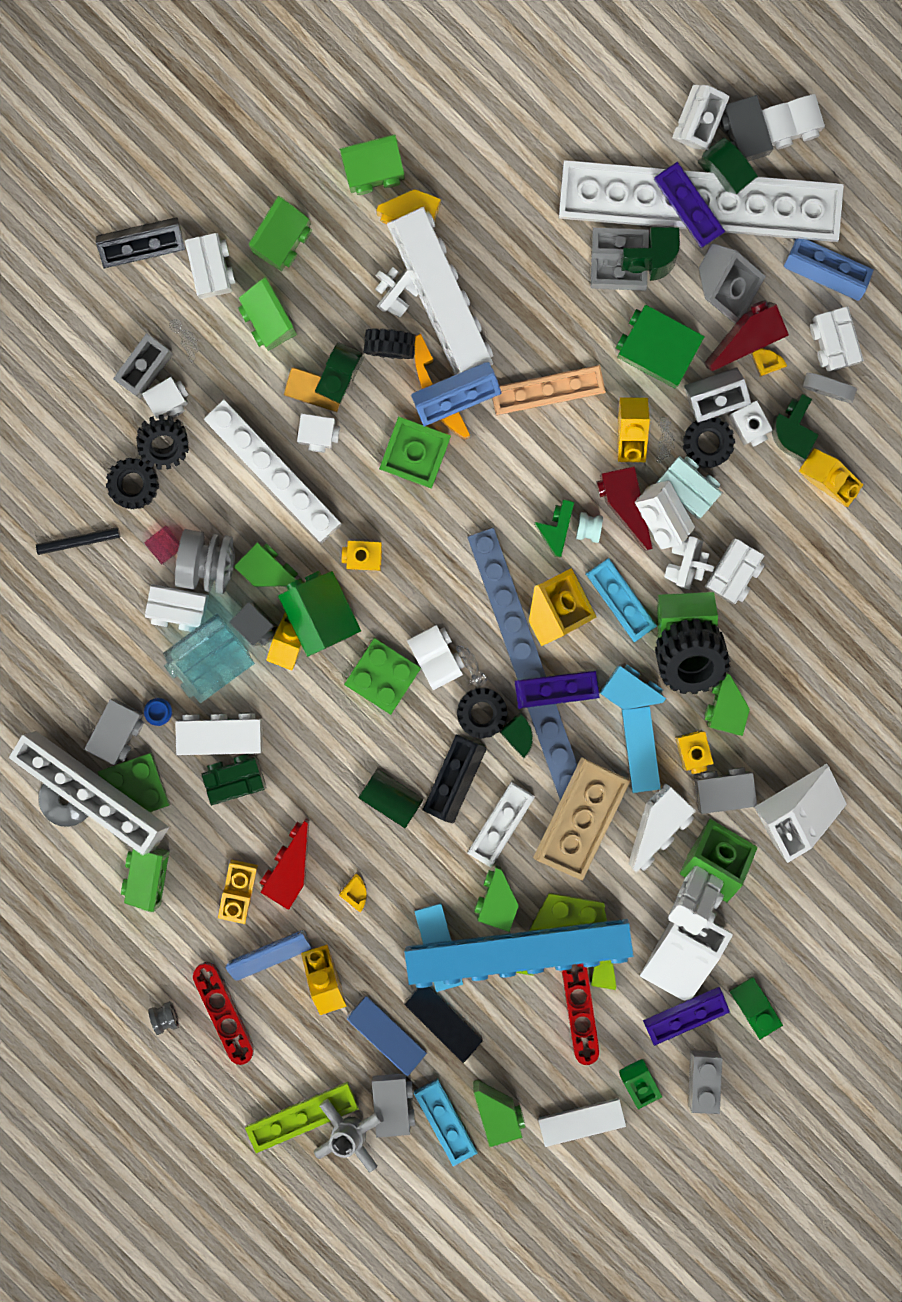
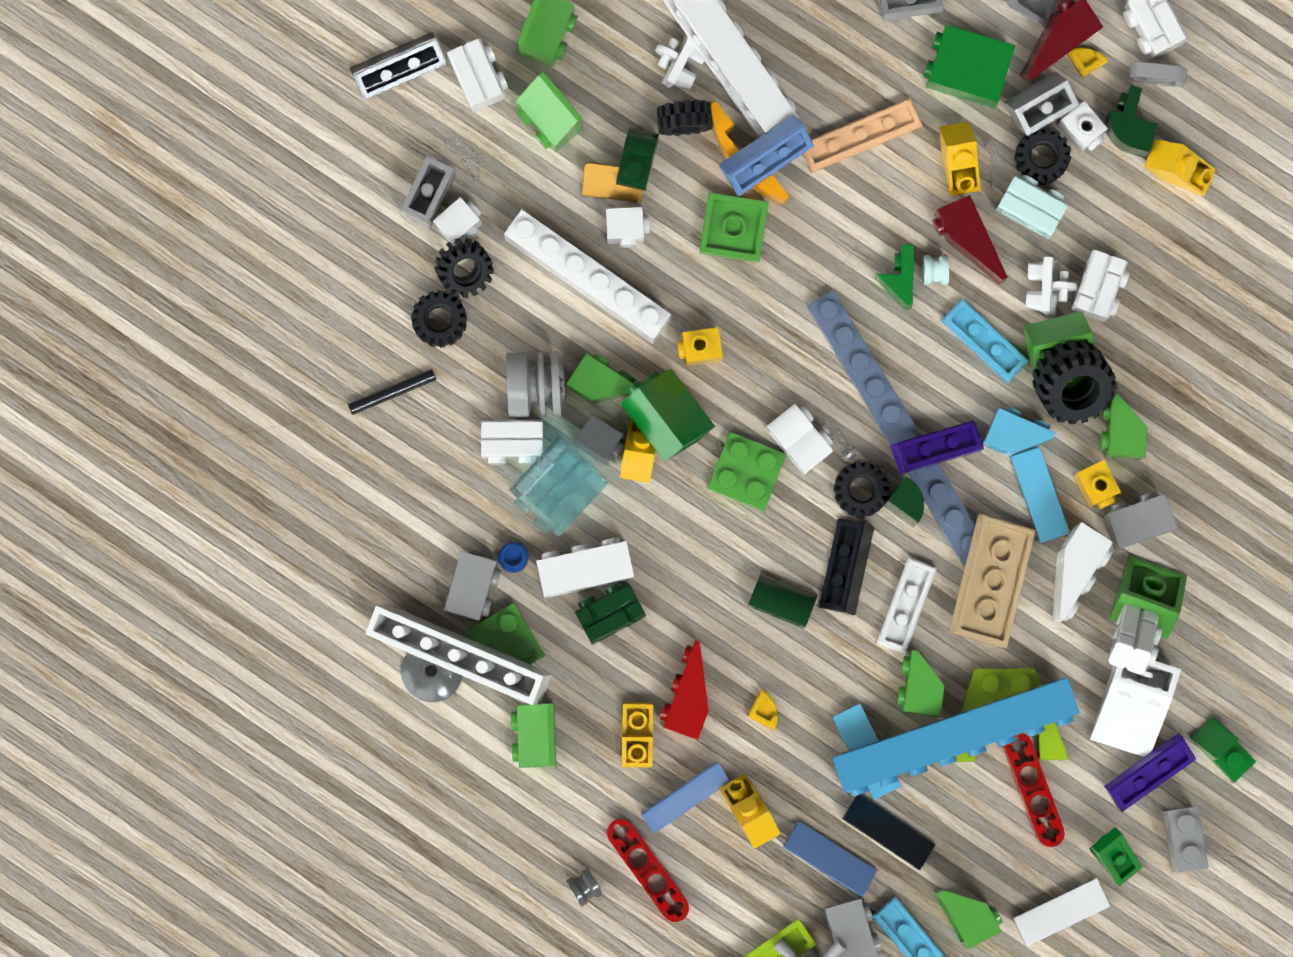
camera: 15 degrees left, 5 degrees down
(163, 545) = (485, 378): clear pink plate -> none
(559, 607) = (920, 360): yellow slope -> none
(665, 514) = (1013, 239): white brick -> none
(802, 812) = (1226, 526): white slope -> none

